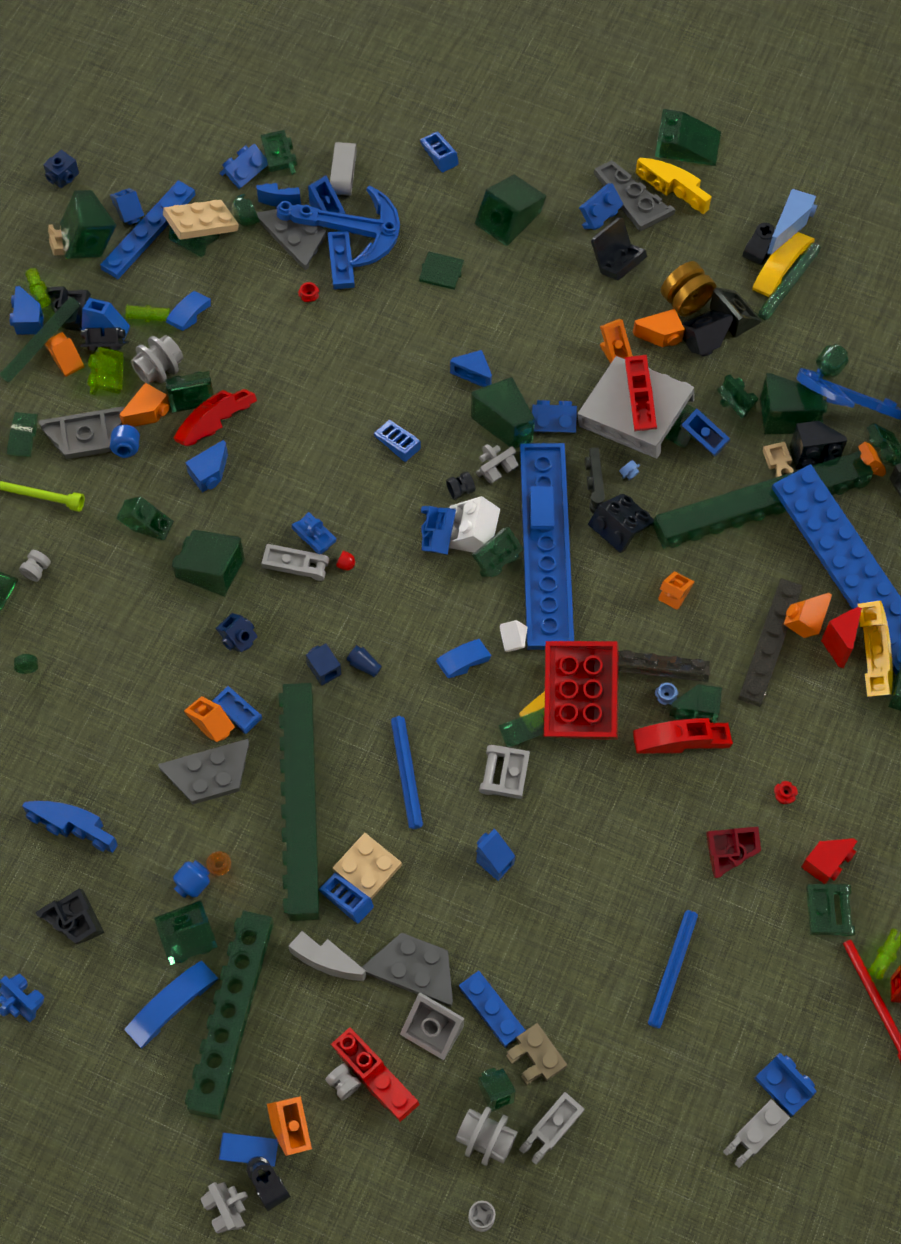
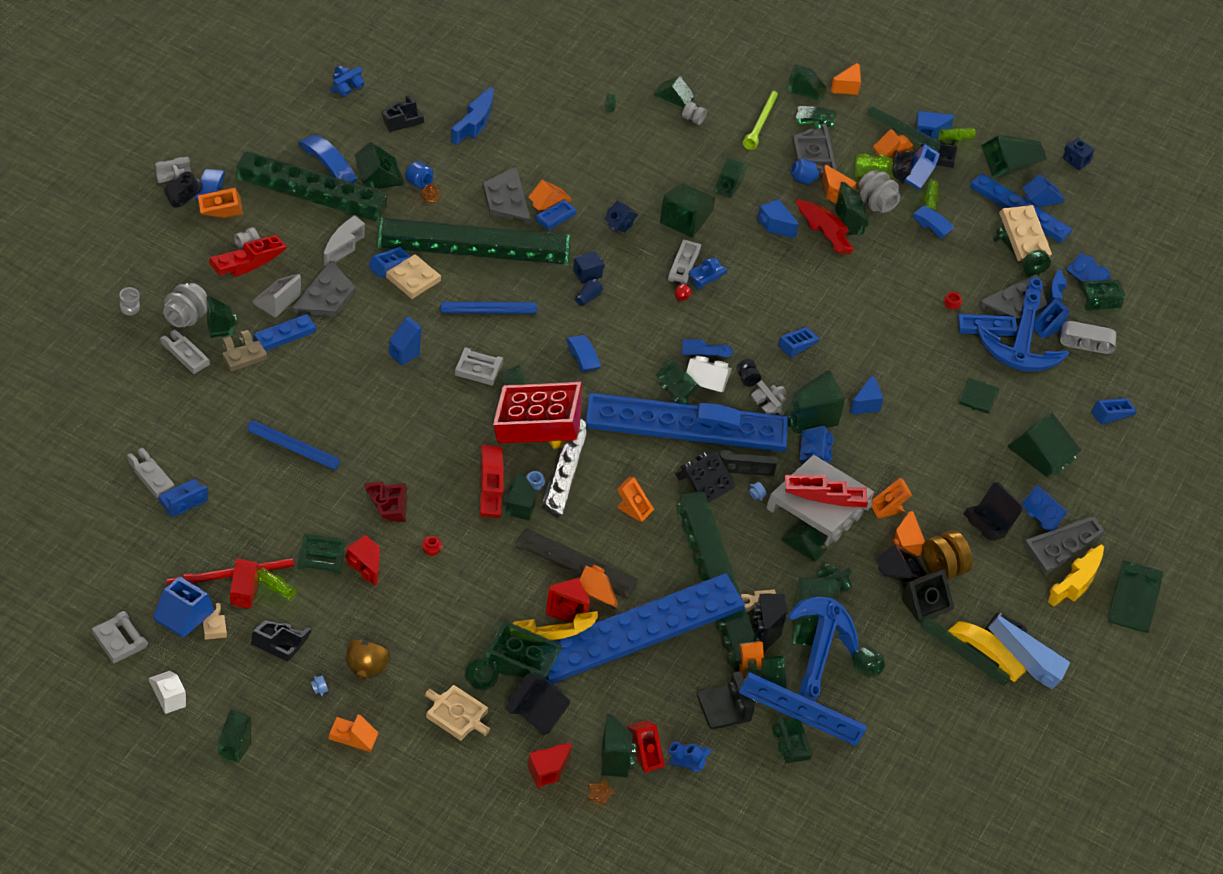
camera: 90 degrees right, 15 degrees down
(513, 635) = (600, 387): white slope -> none
(706, 432) = (786, 543): blue slope -> none

